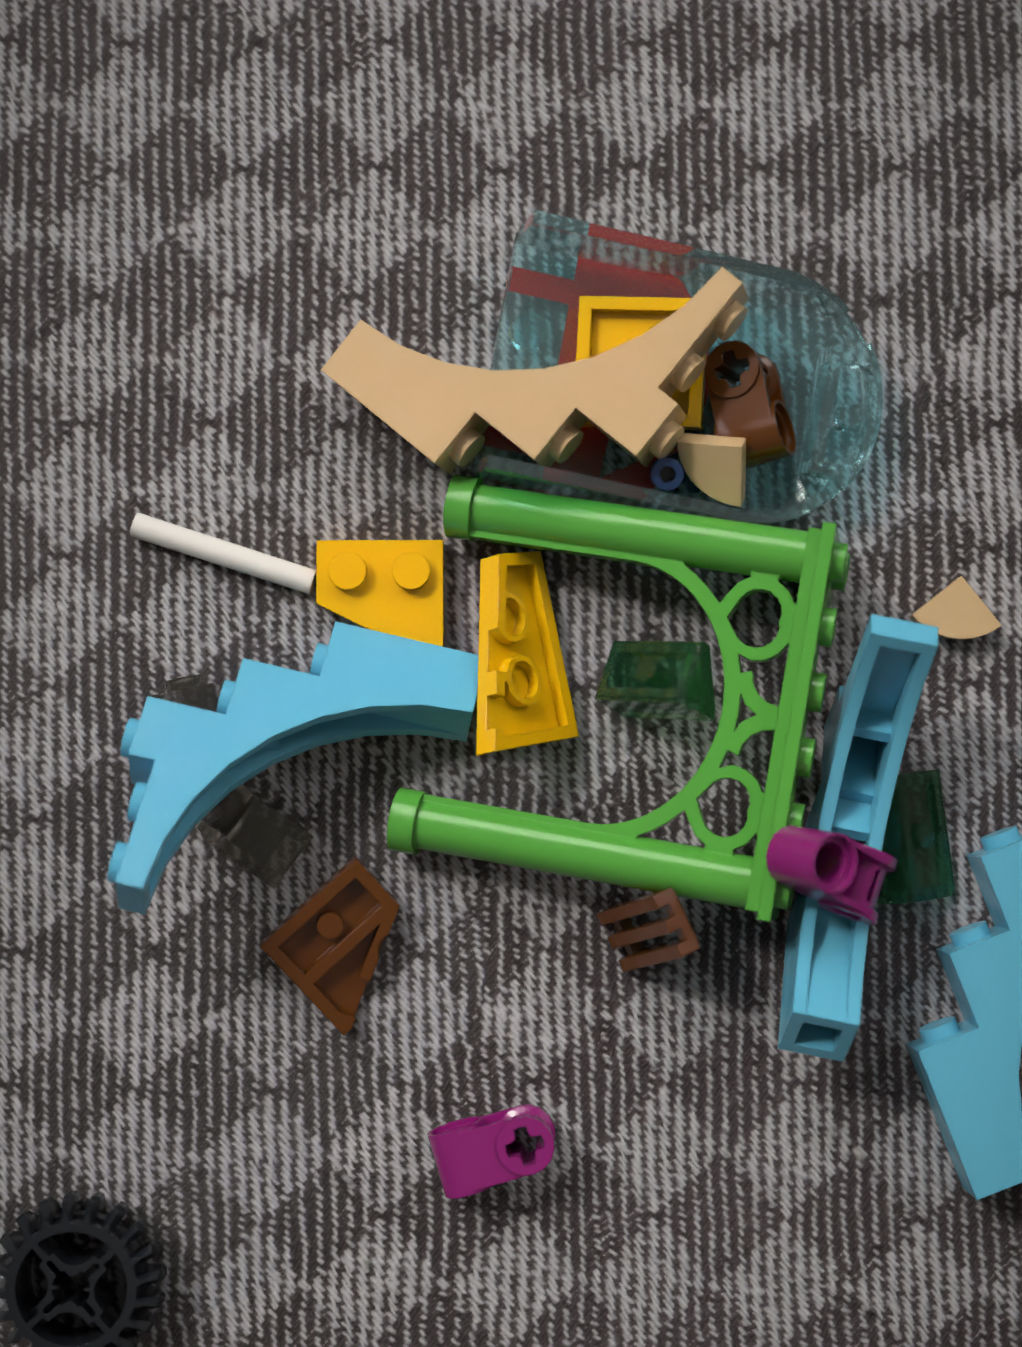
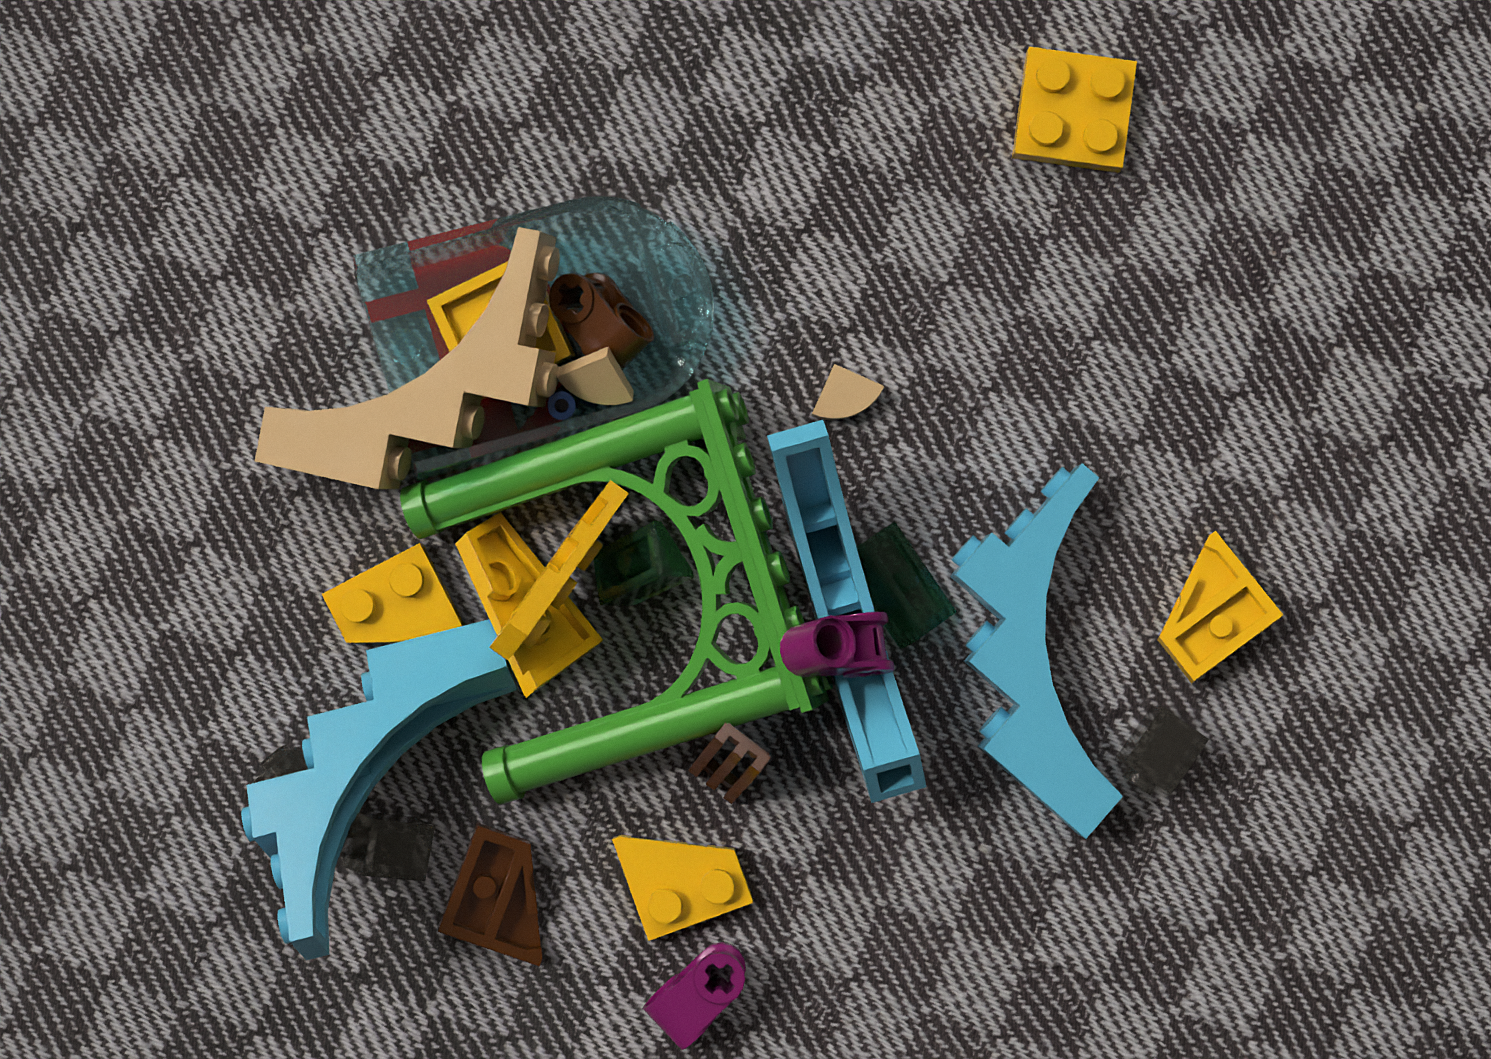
camera: 25 degrees left, 0 degrees up
(223, 553) = (254, 641): white bar -> none
(531, 1025) = (680, 882): none -> yellow wing
(567, 649) = (554, 582): none -> yellow wing

